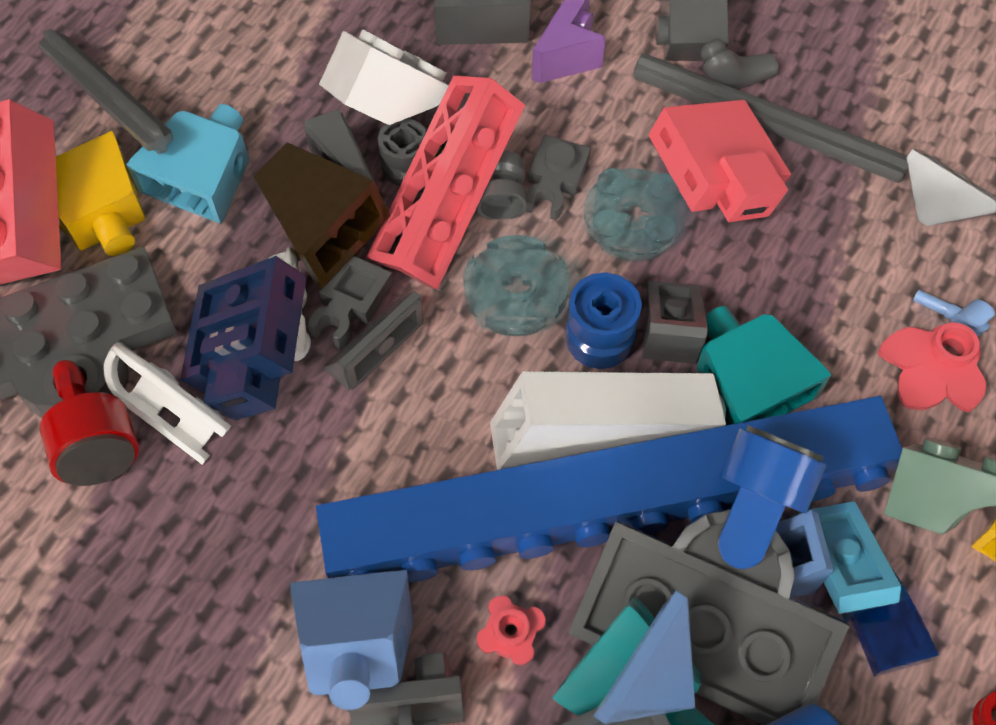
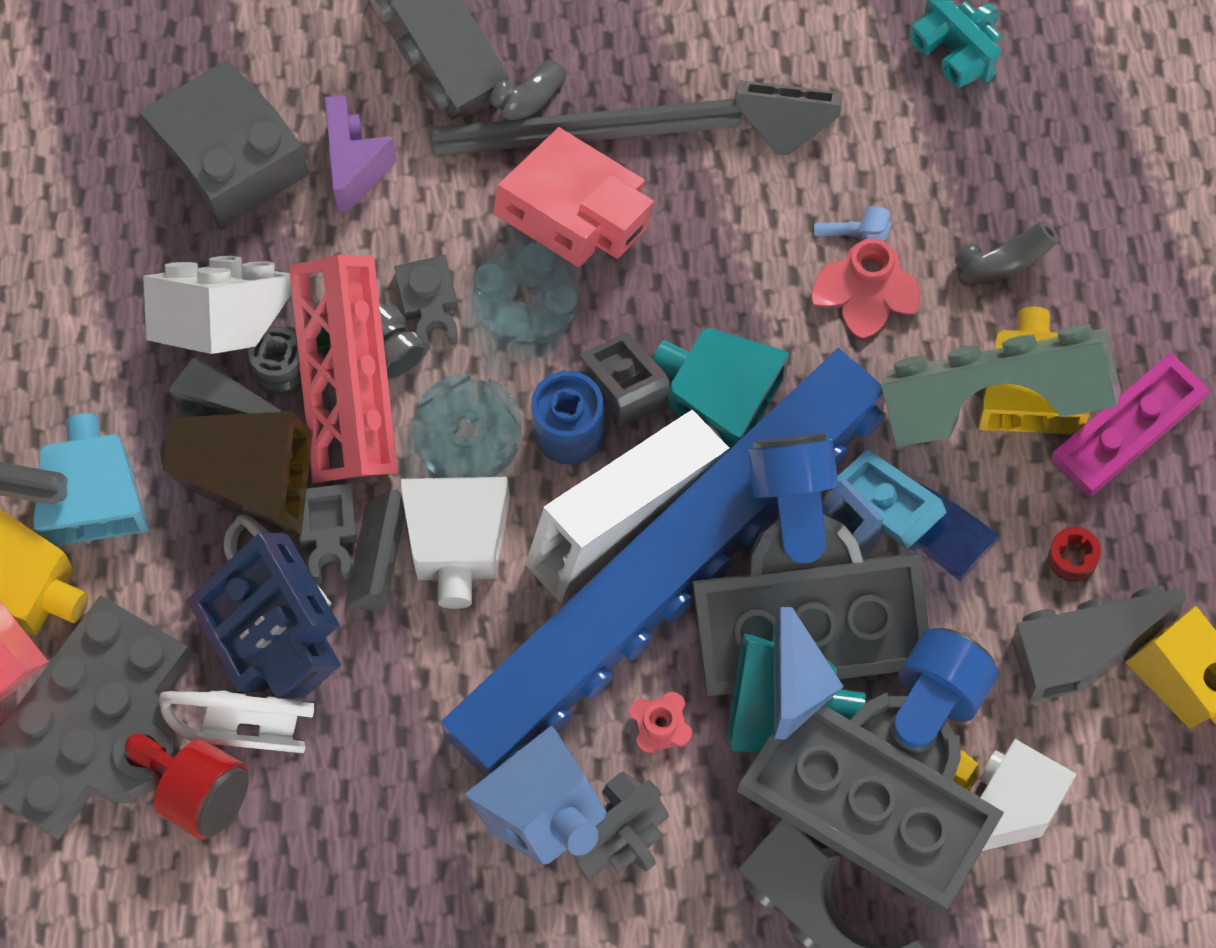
camera: 30 degrees left, 5 degrees up
(447, 359) = (456, 531): none -> white torso

